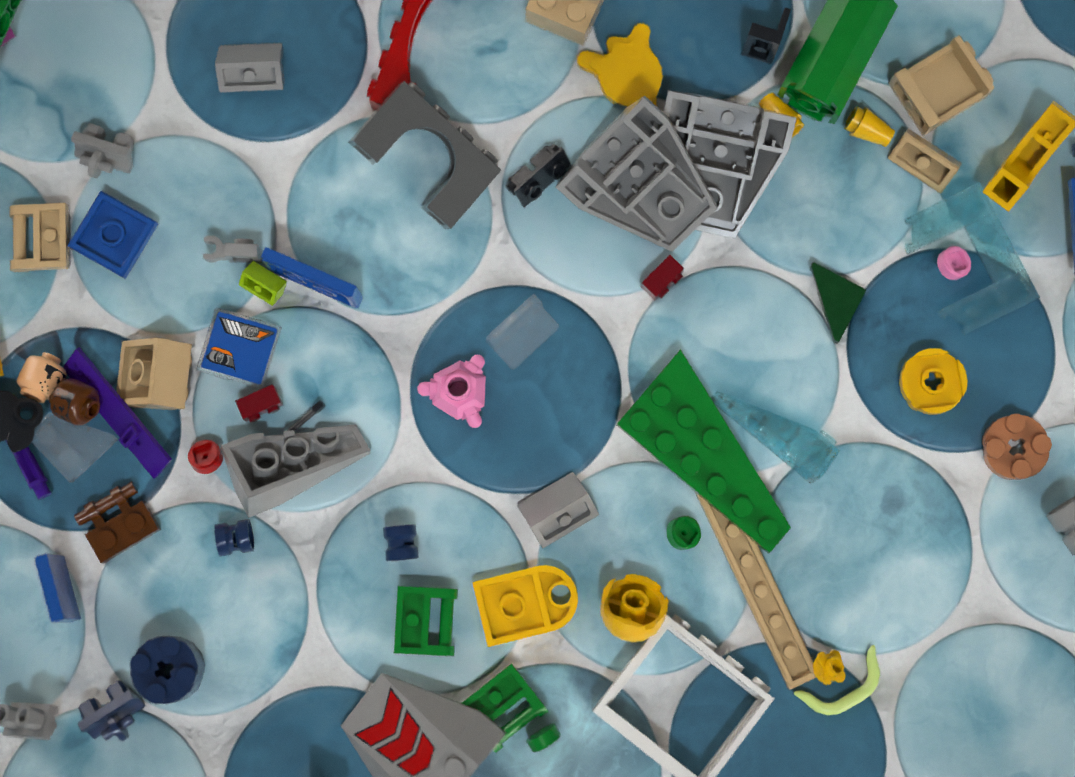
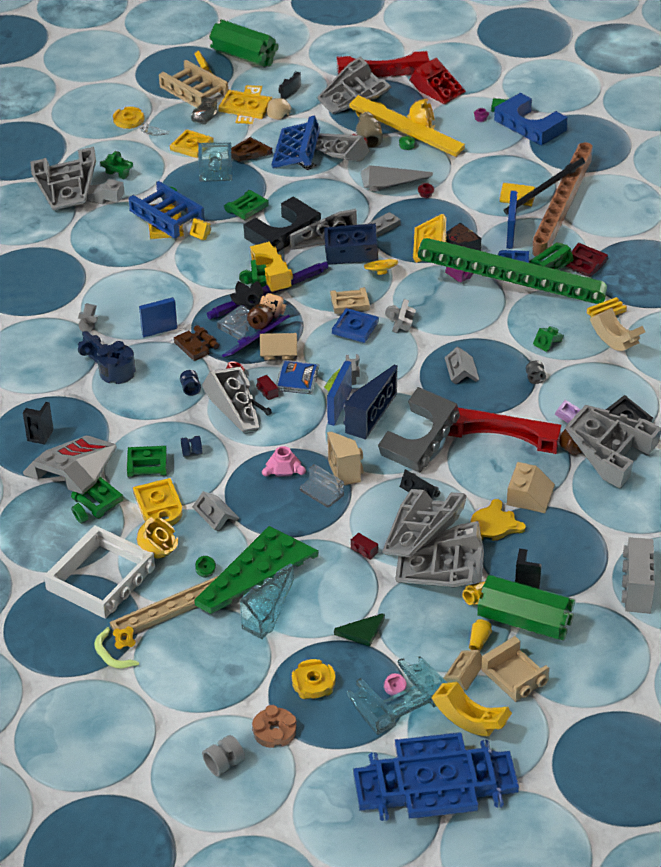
camera: 85 degrees right, 40 degrees down
(362, 239) = (369, 403): none -> dark blue slope
(480, 287) = (344, 458): none -> tan slope

